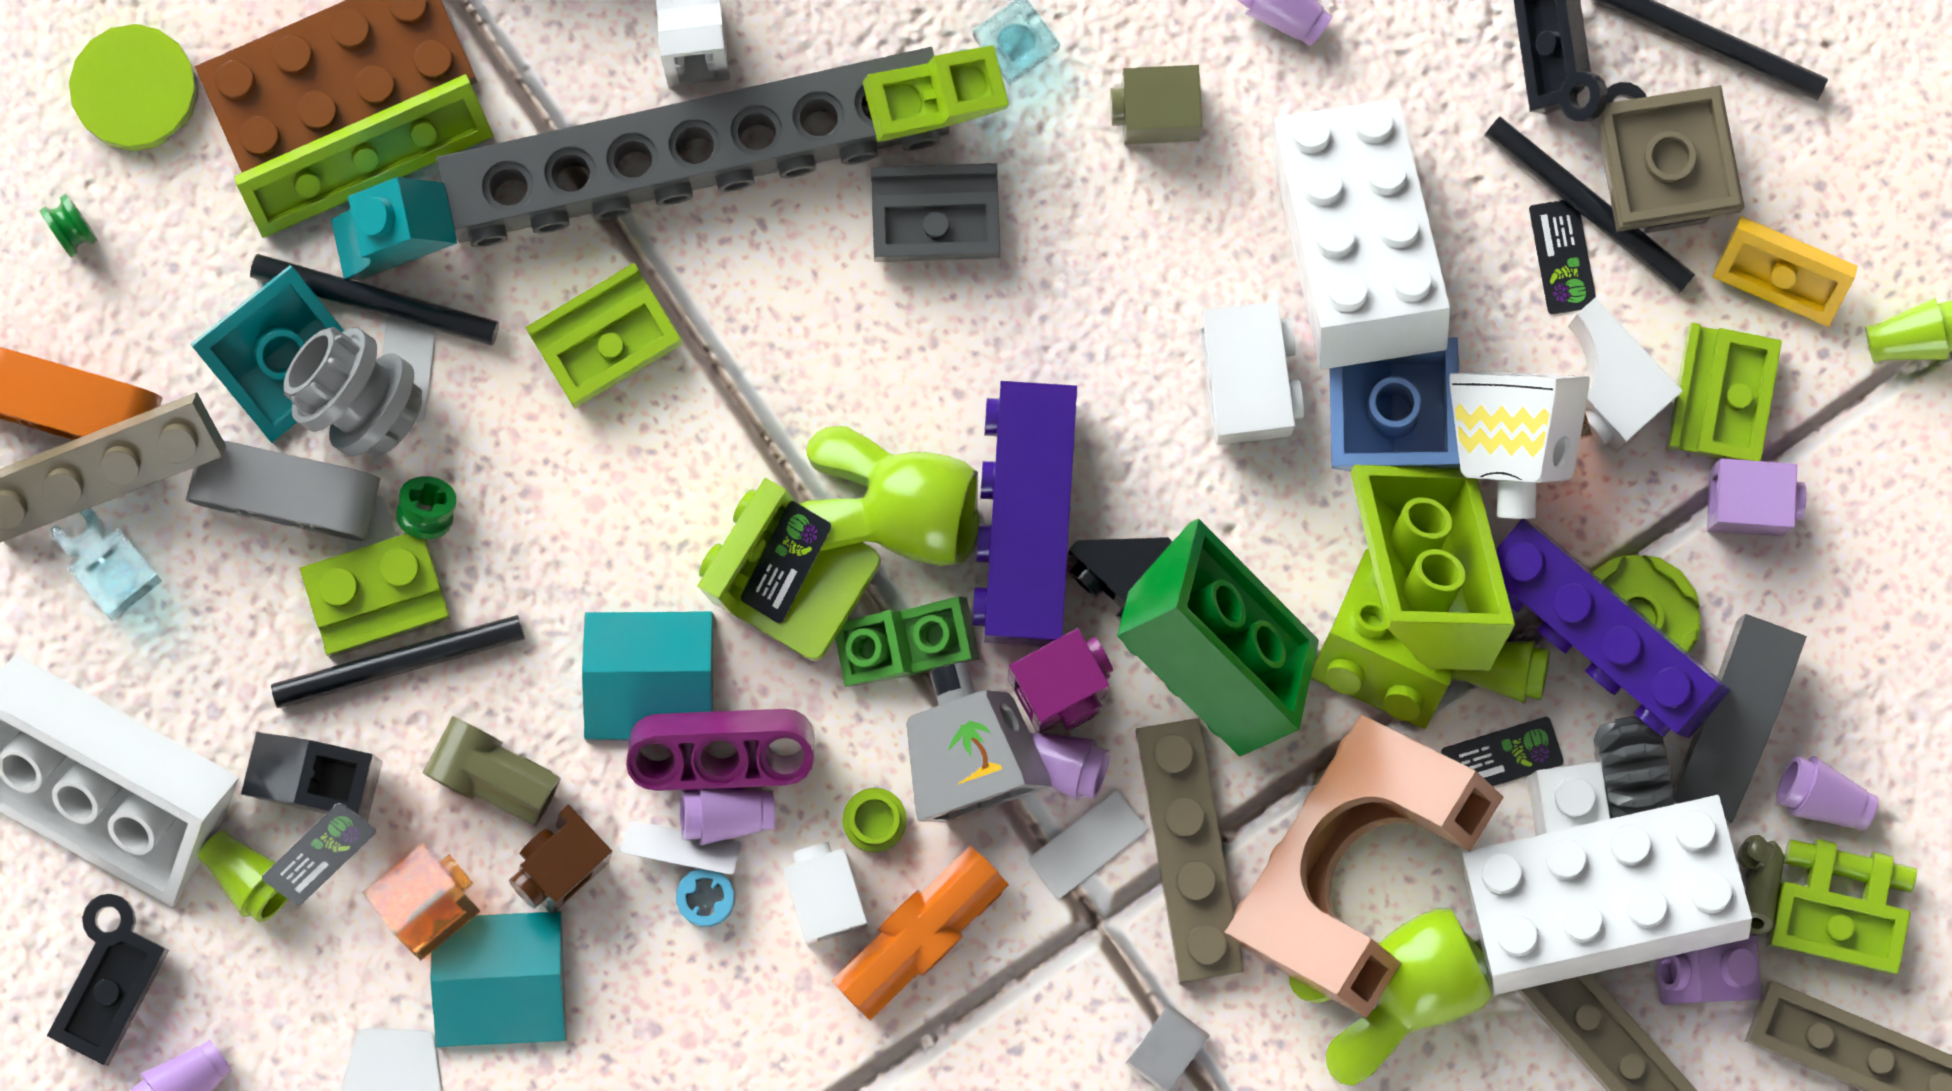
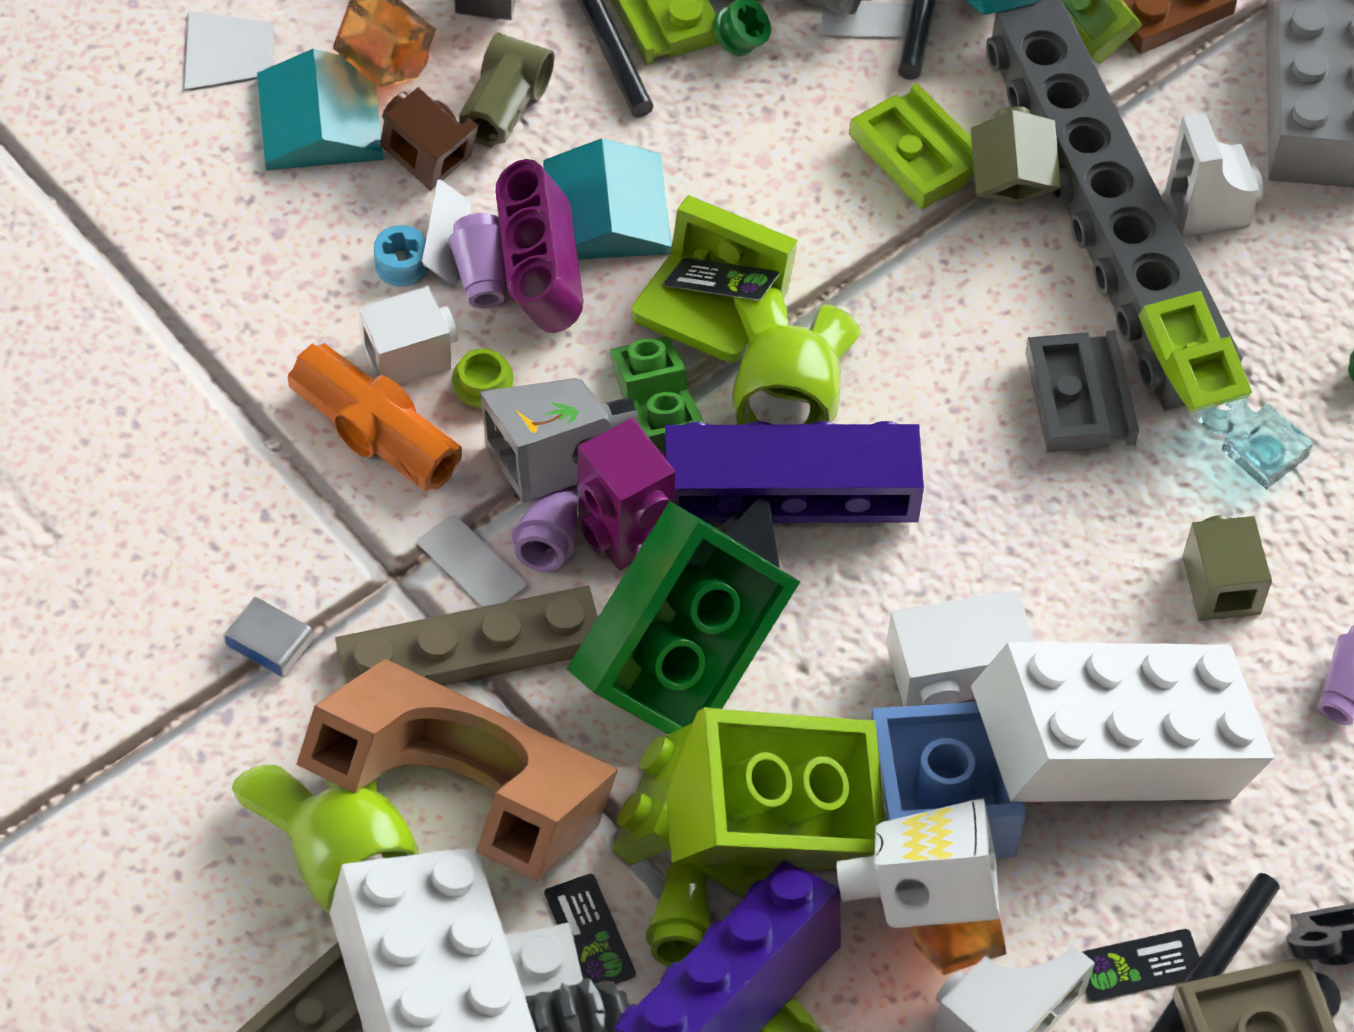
camera: 85 degrees right, 25 degrees down
(648, 236) = (1015, 156): none -> olive brick

